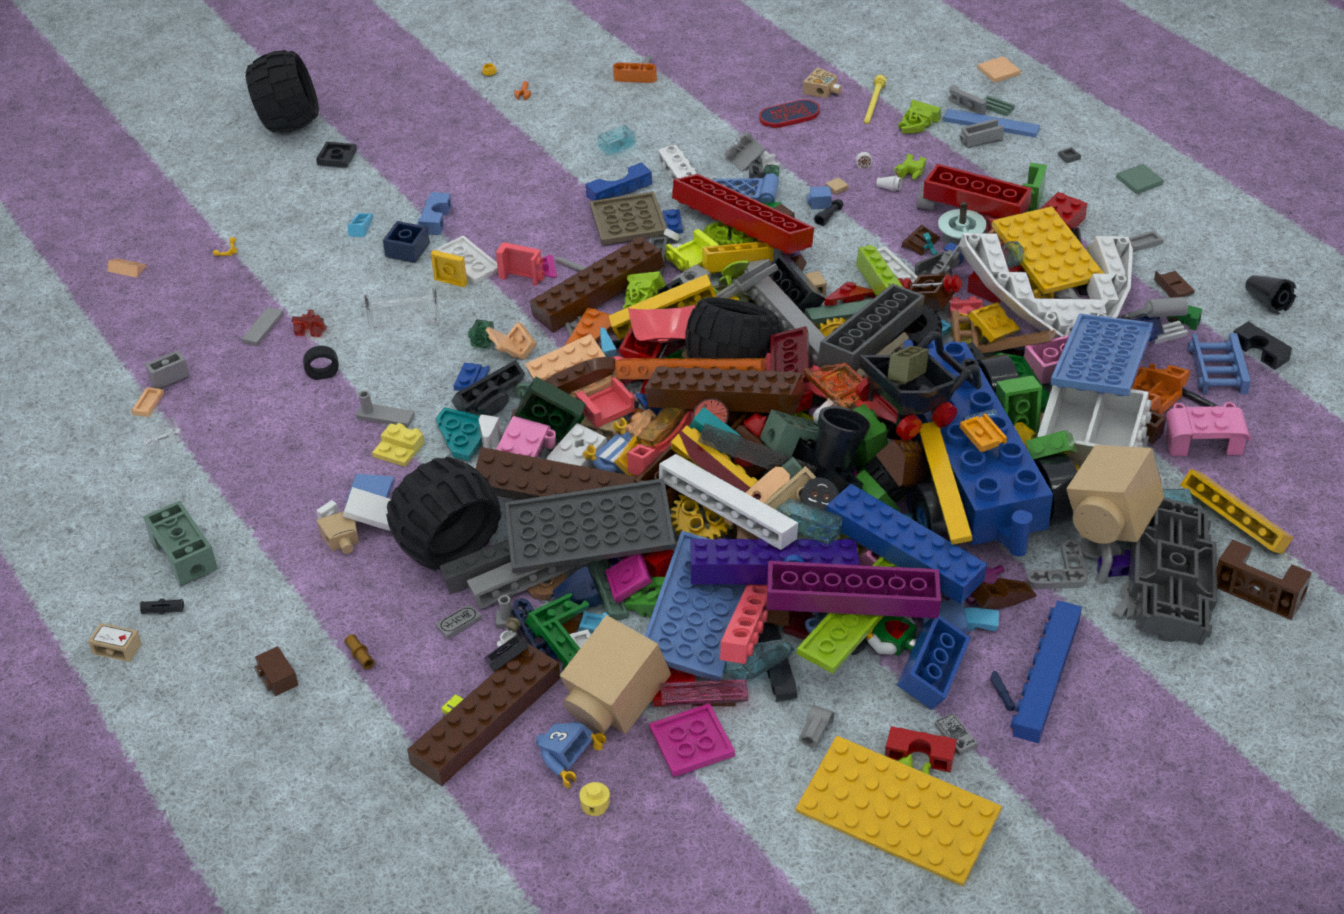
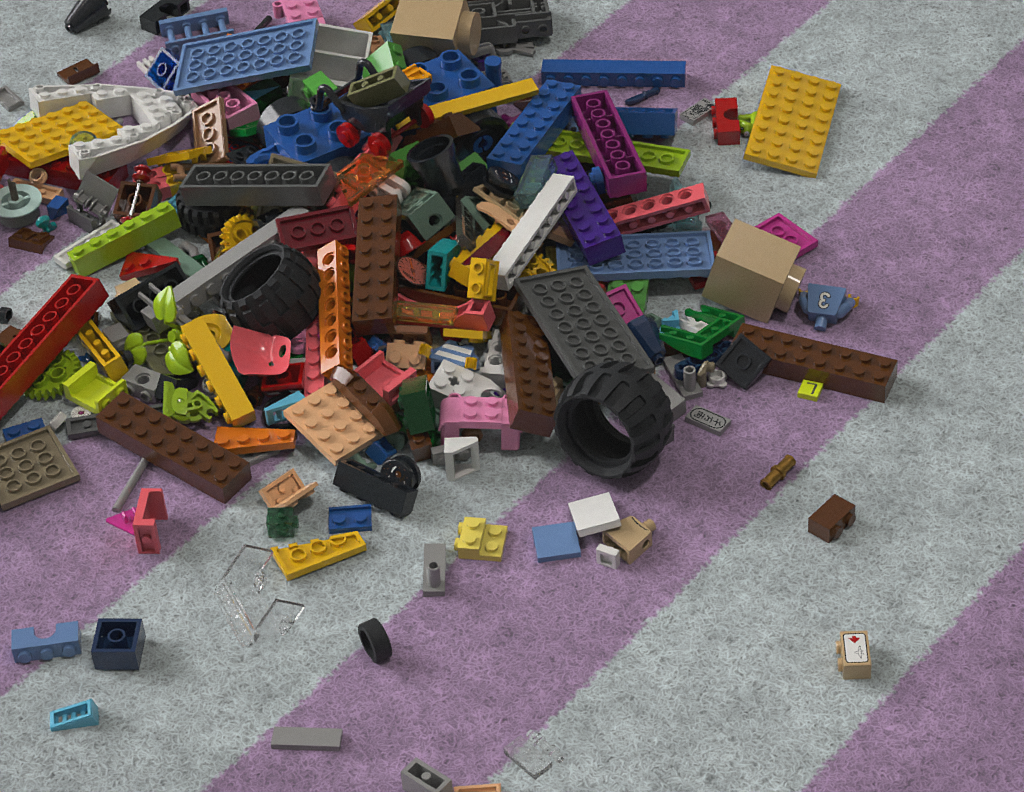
camera: 105 degrees left, 0 degrees up
(162, 606) = (787, 643): black pin -> none
(181, 541) = (688, 658): sand green plate -> none
(309, 322) = (294, 687): clear red hips -> none
(442, 351) = (308, 557): none -> yellow wing
(449, 268) = (171, 580): yellow plate -> none
(460, 432) = (445, 494): teal plate -> none
(477, 263) = (130, 587): white tile -> none
(594, 796) = (865, 277): light yellow piece -> none
(660, 447) = (483, 279): none -> yellow window
(817, 723) = (722, 177): light grey piece -> none
(1160, 308) = (160, 40): light grey piece -> none
(1192, 317) = (128, 57): green leg -> none

